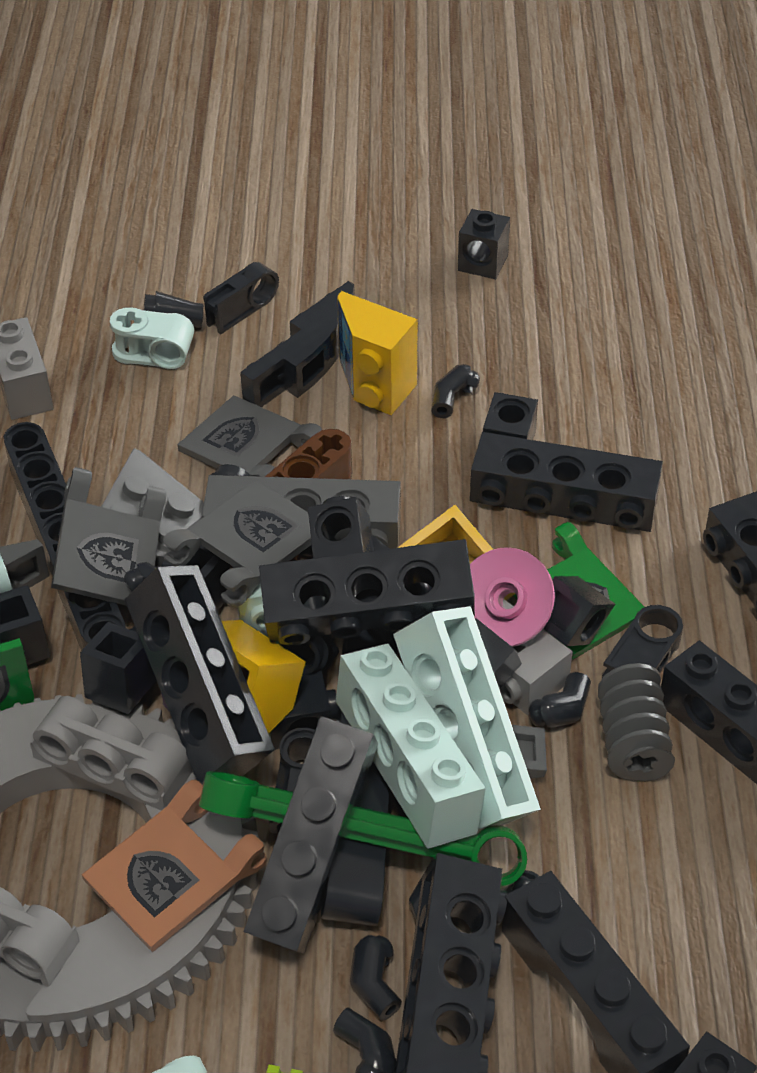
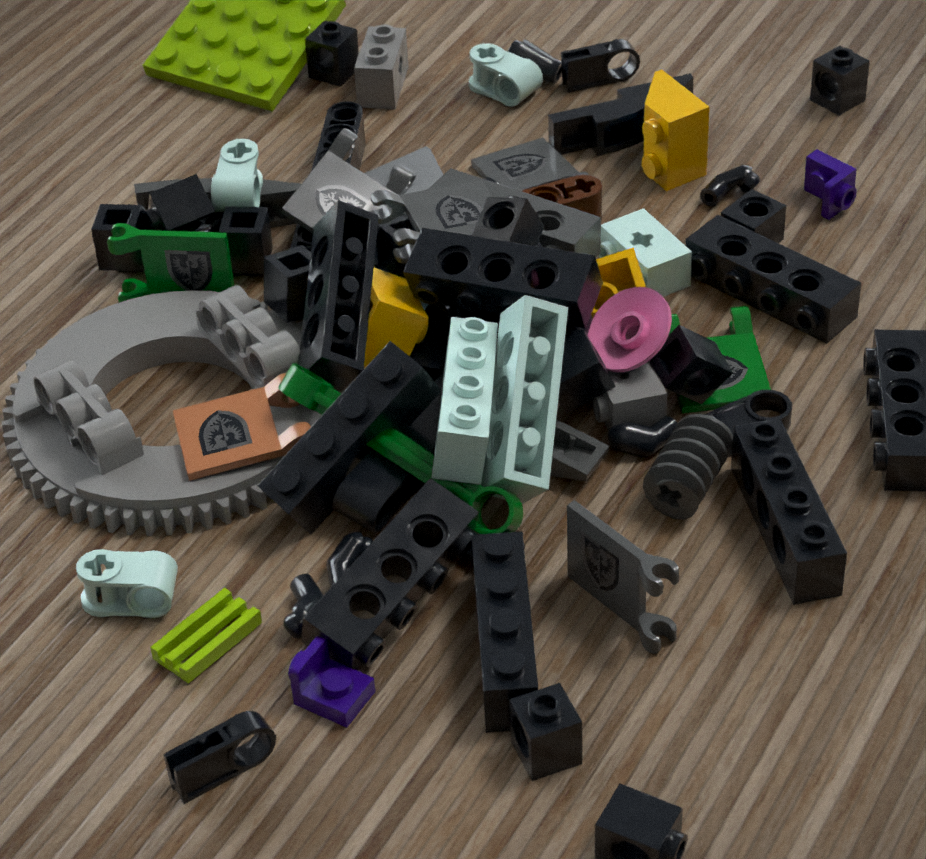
camera: 30 degrees right, 5 degrees down
(433, 488) = (660, 254): none -> light aqua brick
(548, 356) = (831, 182): none -> dark purple bracket
(669, 877) = (618, 574): none -> dark grey flag

